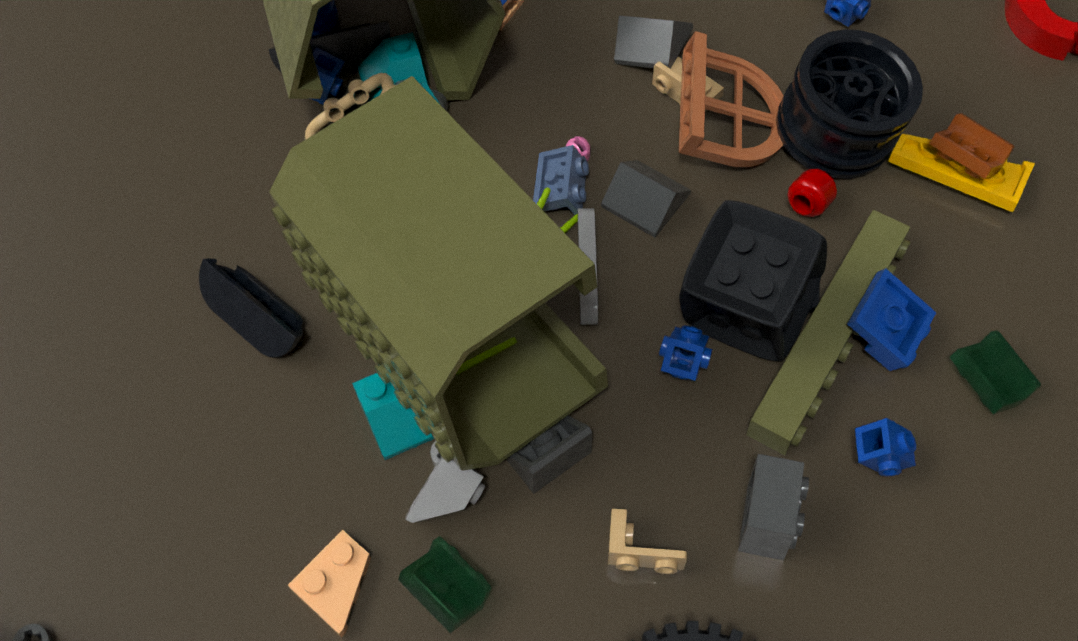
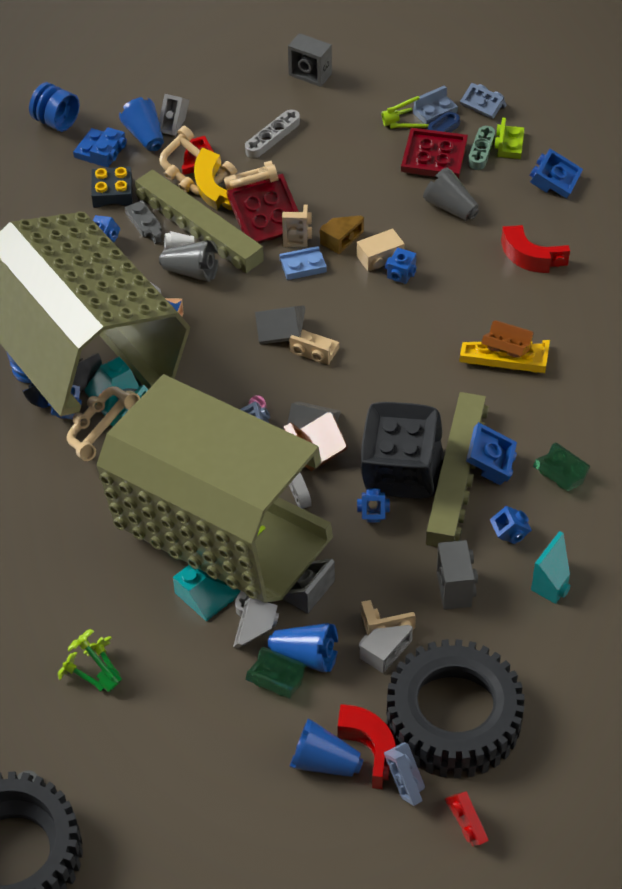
camera: 20 degrees left, 10 degrees down
(206, 510) = (108, 677): none -> plant
(250, 308) = (80, 556): black brick -> none
(333, 581) = (203, 695): light nougat wing -> none
(507, 555) = (308, 645): none -> blue cone
(624, 590) = (384, 646): none -> light grey slope
(636, 229) = (323, 433): none -> bracket
(694, 102) = (326, 355): nougat window -> none
(812, 193) = (418, 391): red head -> none
(848, 103) = (423, 331): black wheel -> none
(929, 549) = (552, 571): none -> teal slope

